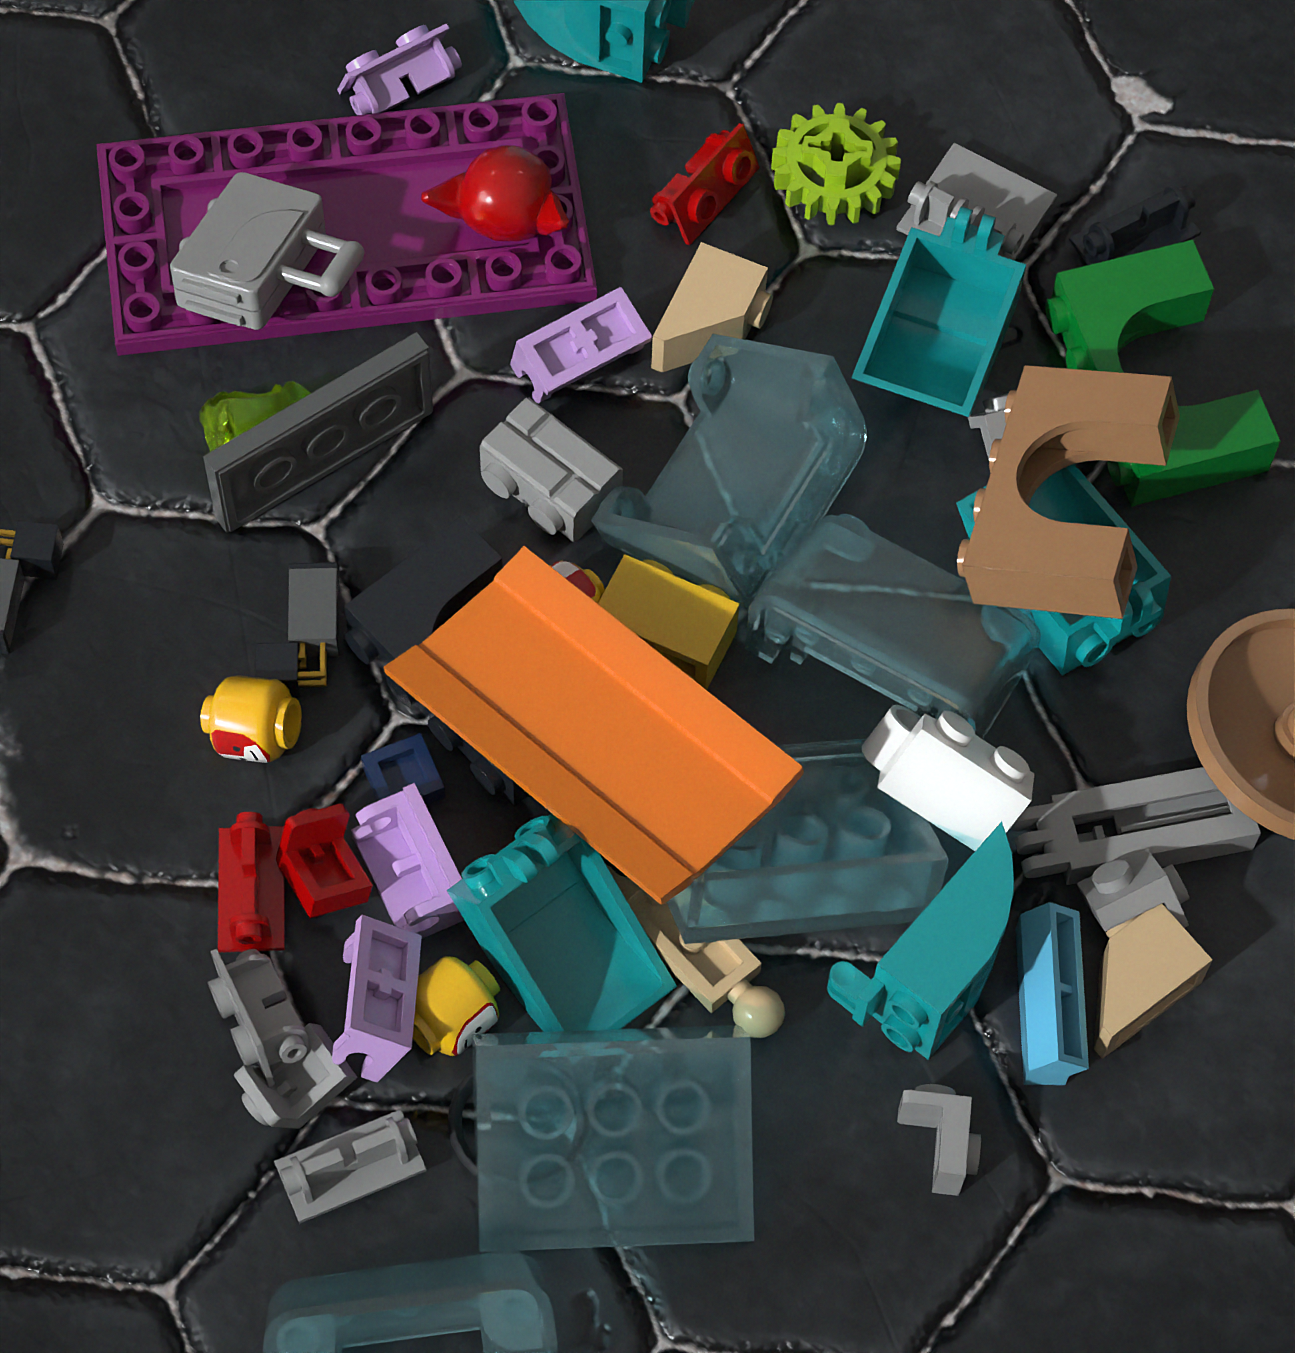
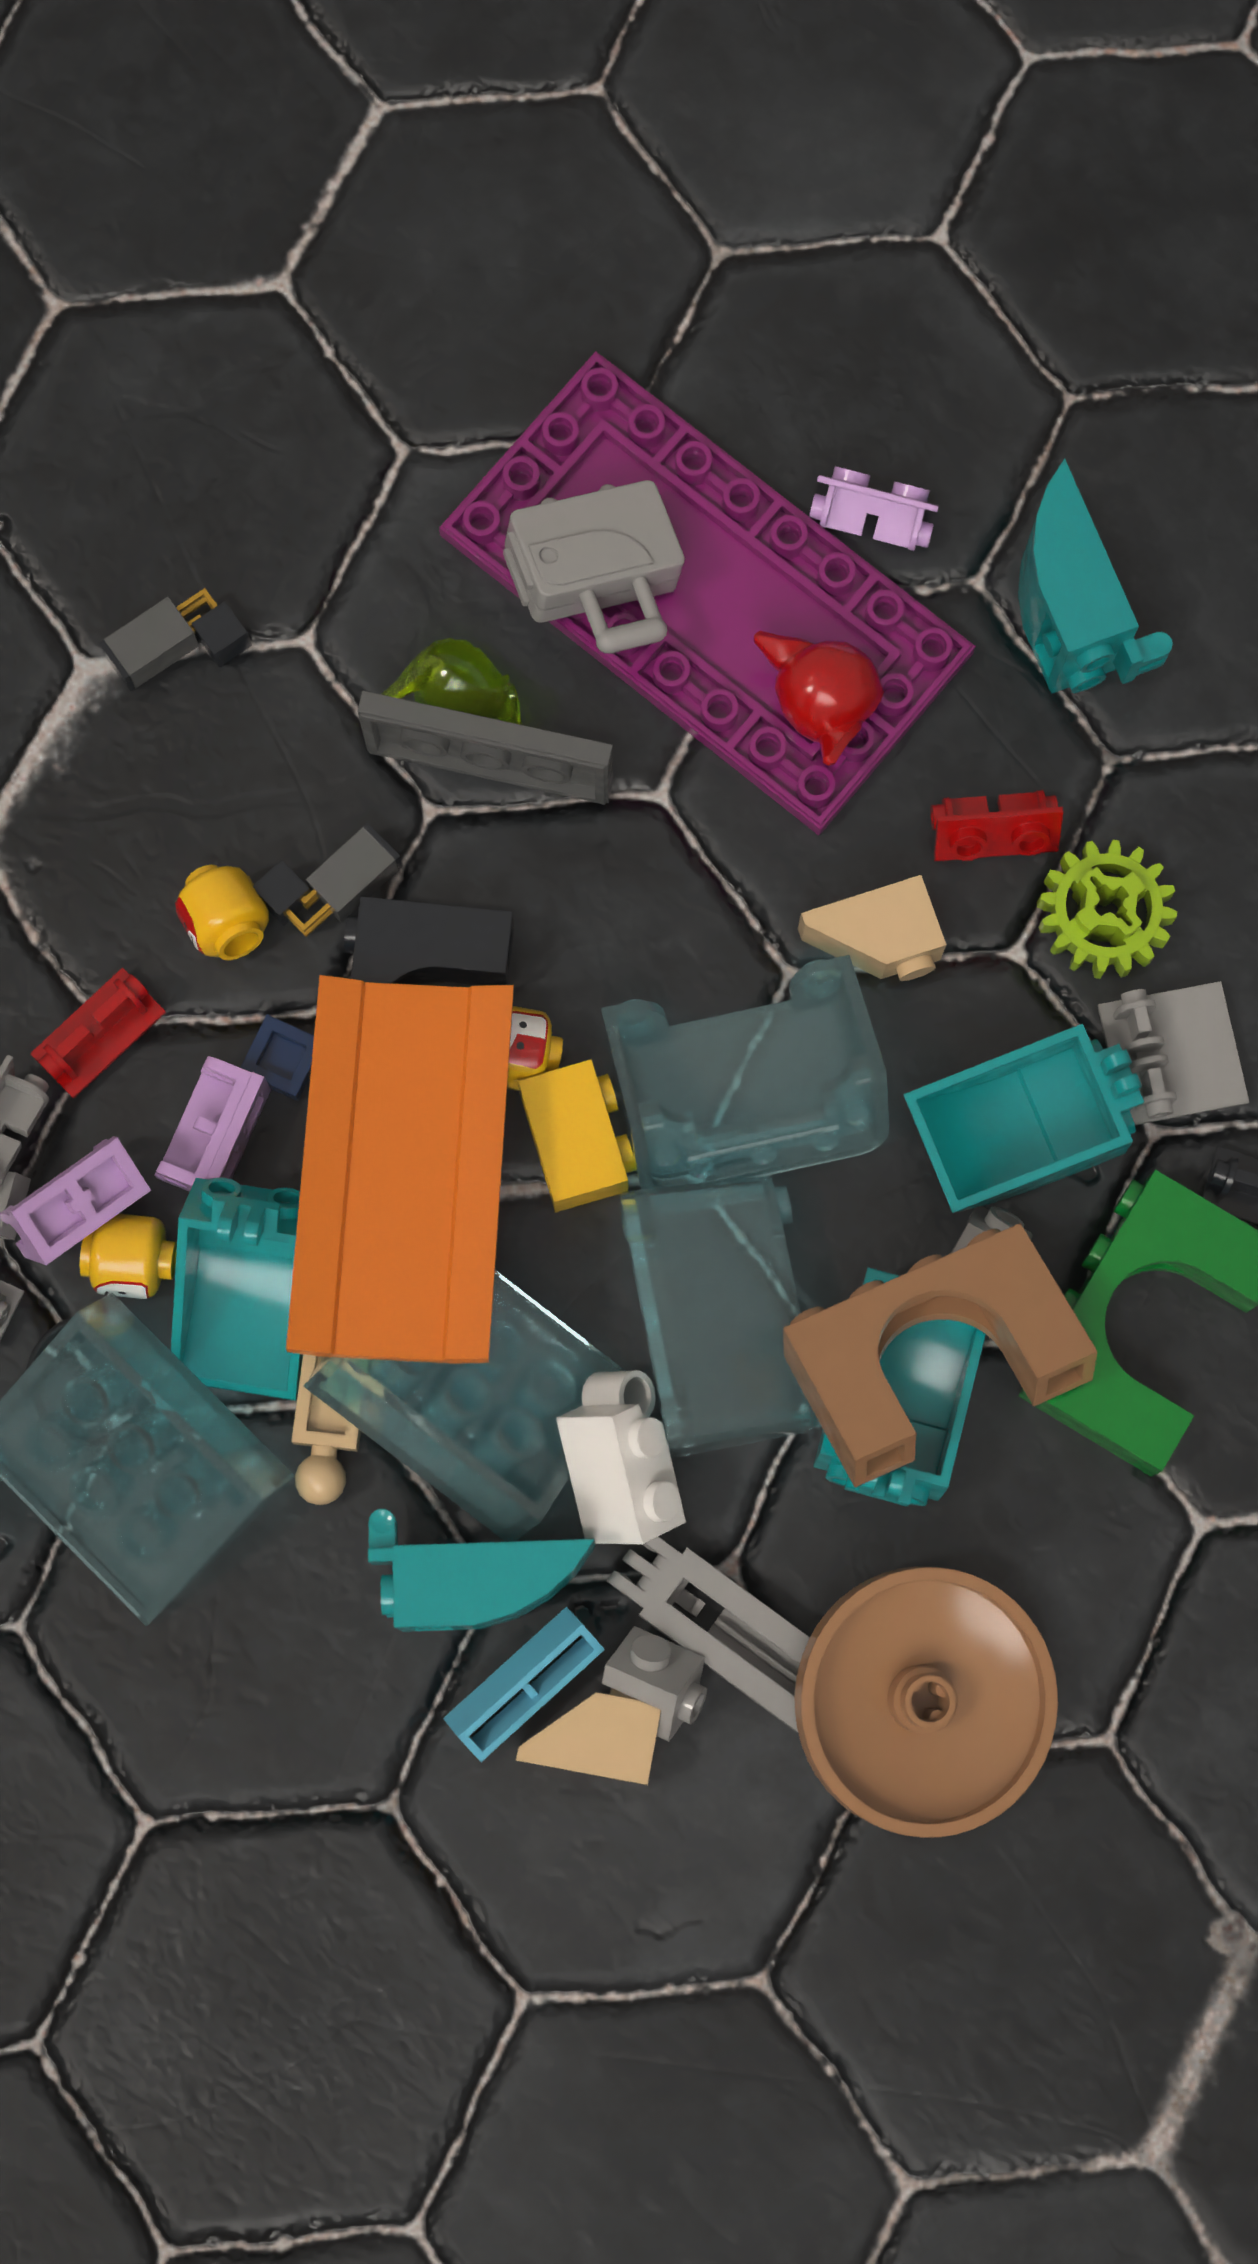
camera: 50 degrees right, 15 degrees up
(321, 862) = (154, 1066): red bracket -> none
(547, 470) = (624, 936): light grey brick -> none
(579, 343) = (750, 865): lavender hinge -> none
(955, 1148) = (337, 1714): light grey bracket -> none

